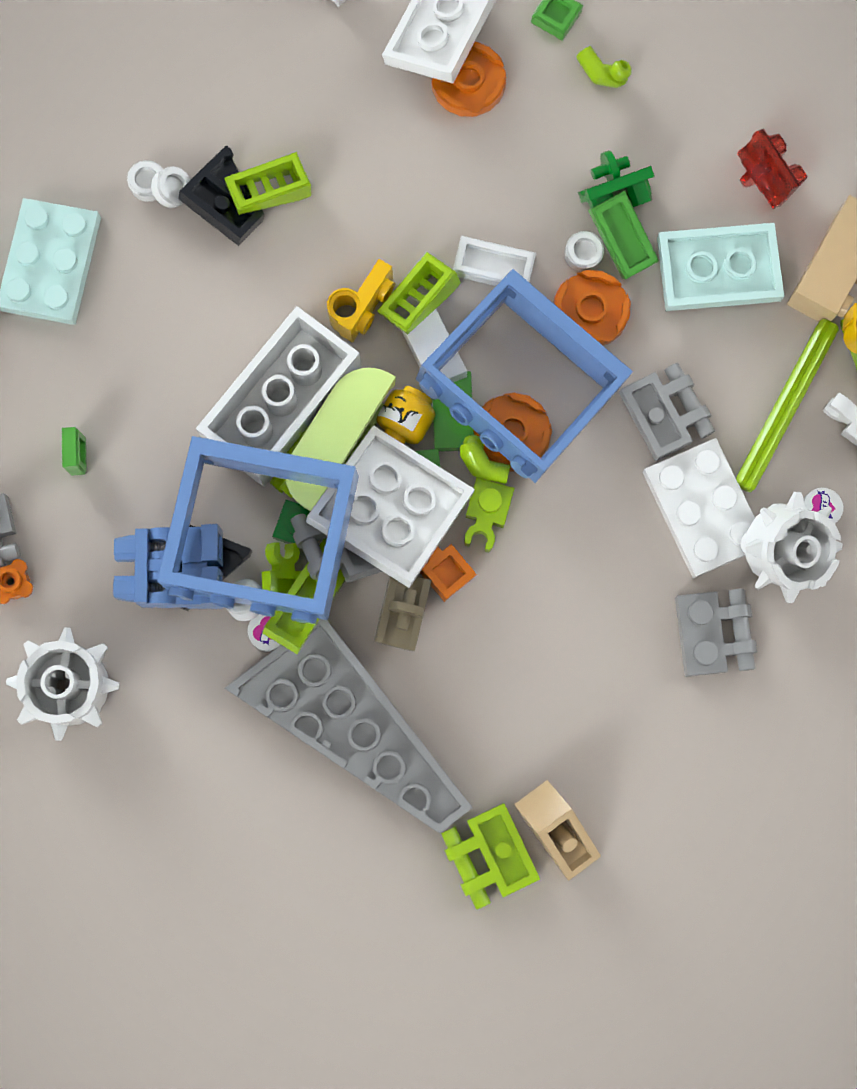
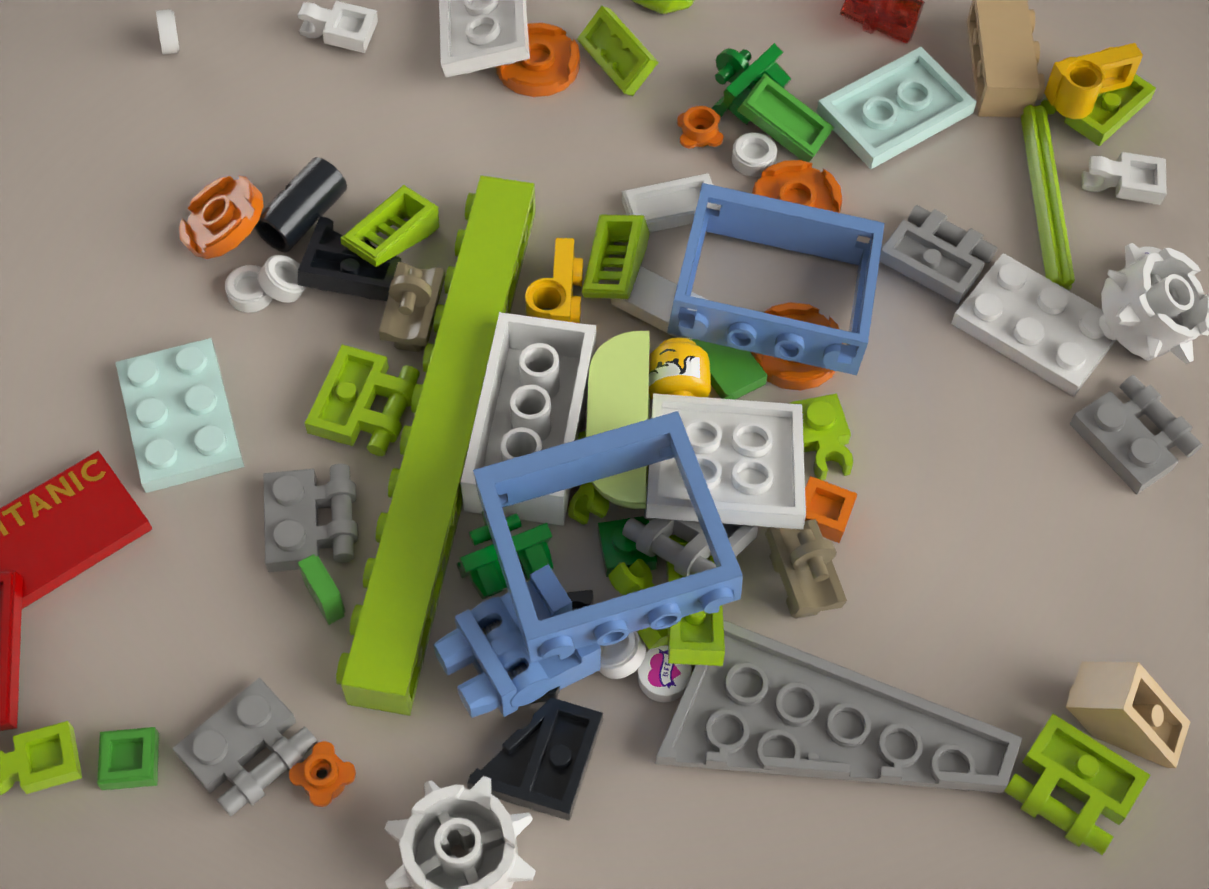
camera: 30 degrees left, 20 degrees down
(85, 384) = (292, 517): none -> light grey plate
(152, 112) = (221, 216): none -> orange tile
(154, 649) = (545, 760): none -> black wing
(163, 436) = (426, 491): none -> lime brick
(171, 307) = (349, 393): none -> lime plate
(217, 129) = (300, 204): none -> black pin
(226, 492) = (484, 567): none -> green hips
(248, 259) = (411, 306): none -> dark tan hips
(479, 463) = (785, 384): lime arm -> none
(531, 104) = (617, 50): none -> lime plate
(559, 198) = (699, 127): none -> orange plate

